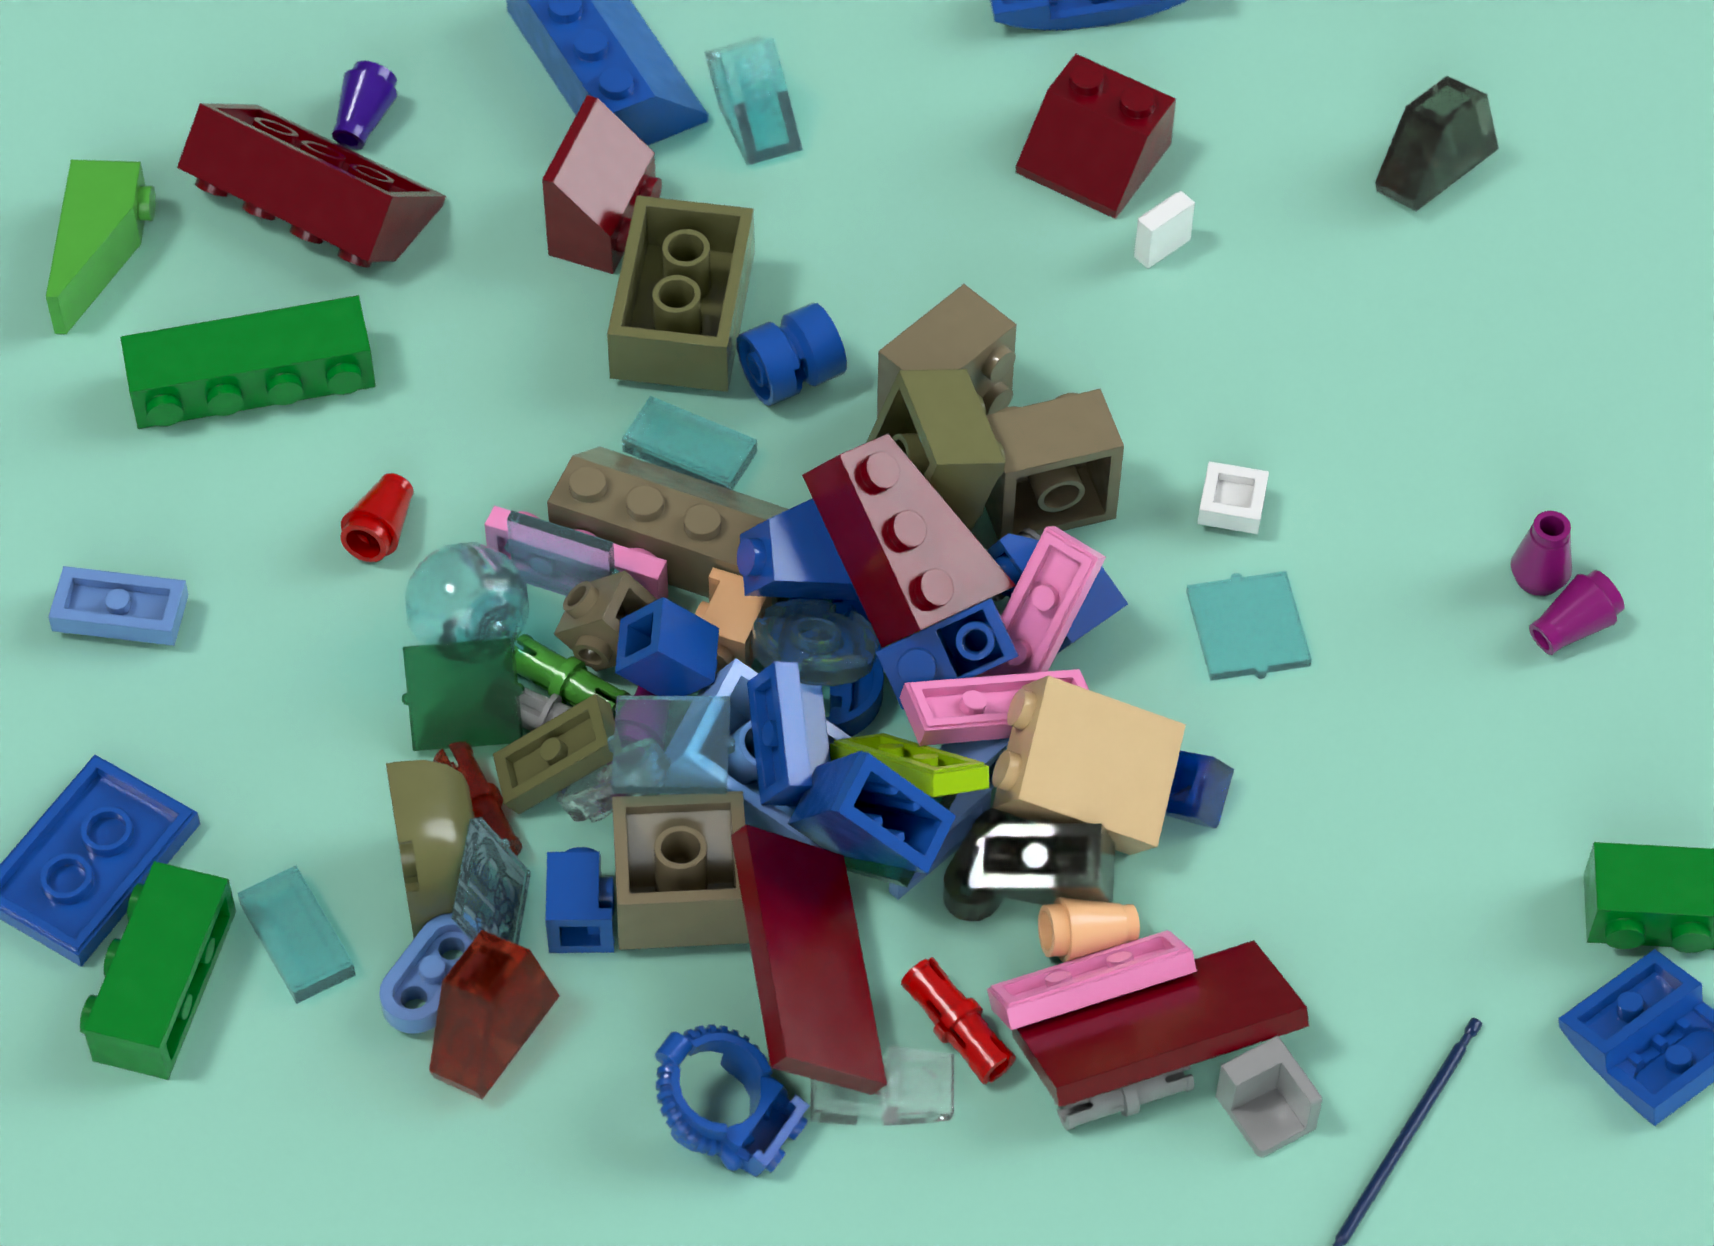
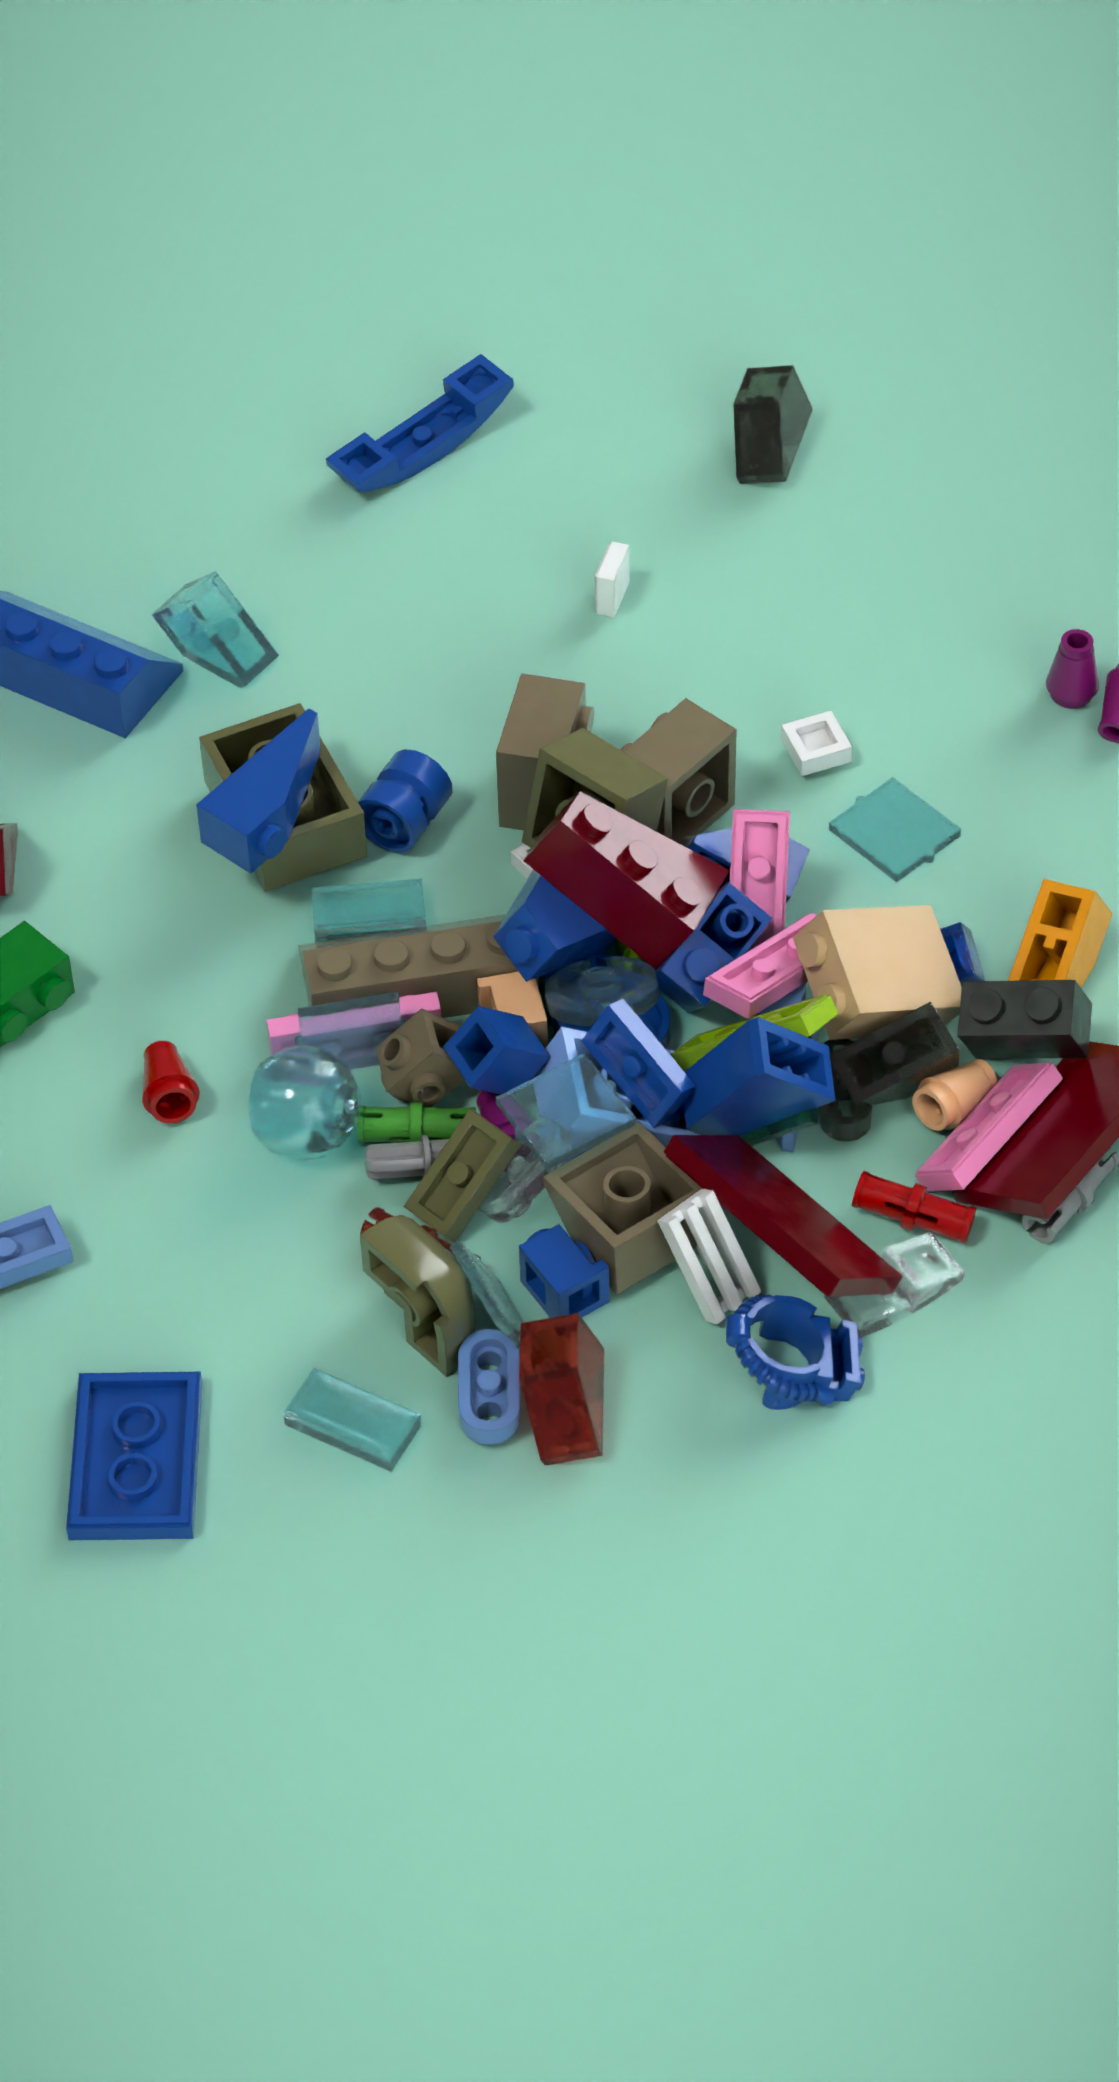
camera: 30 degrees left, 5 degrees down
(158, 970) = (269, 1500): green brick -> none
(463, 693) = (351, 1170): clear green piece -> none
(595, 188) = (156, 755): slope -> none
(636, 286) = (259, 803): none -> blue slope
(719, 1011) = (726, 1244): none -> white tile
(1097, 136) = (507, 536): dark red slope -> none
(1198, 891) = (1025, 1019): none -> pearl dark grey brick
(1279, 849) = (1062, 934): none -> light orange slope

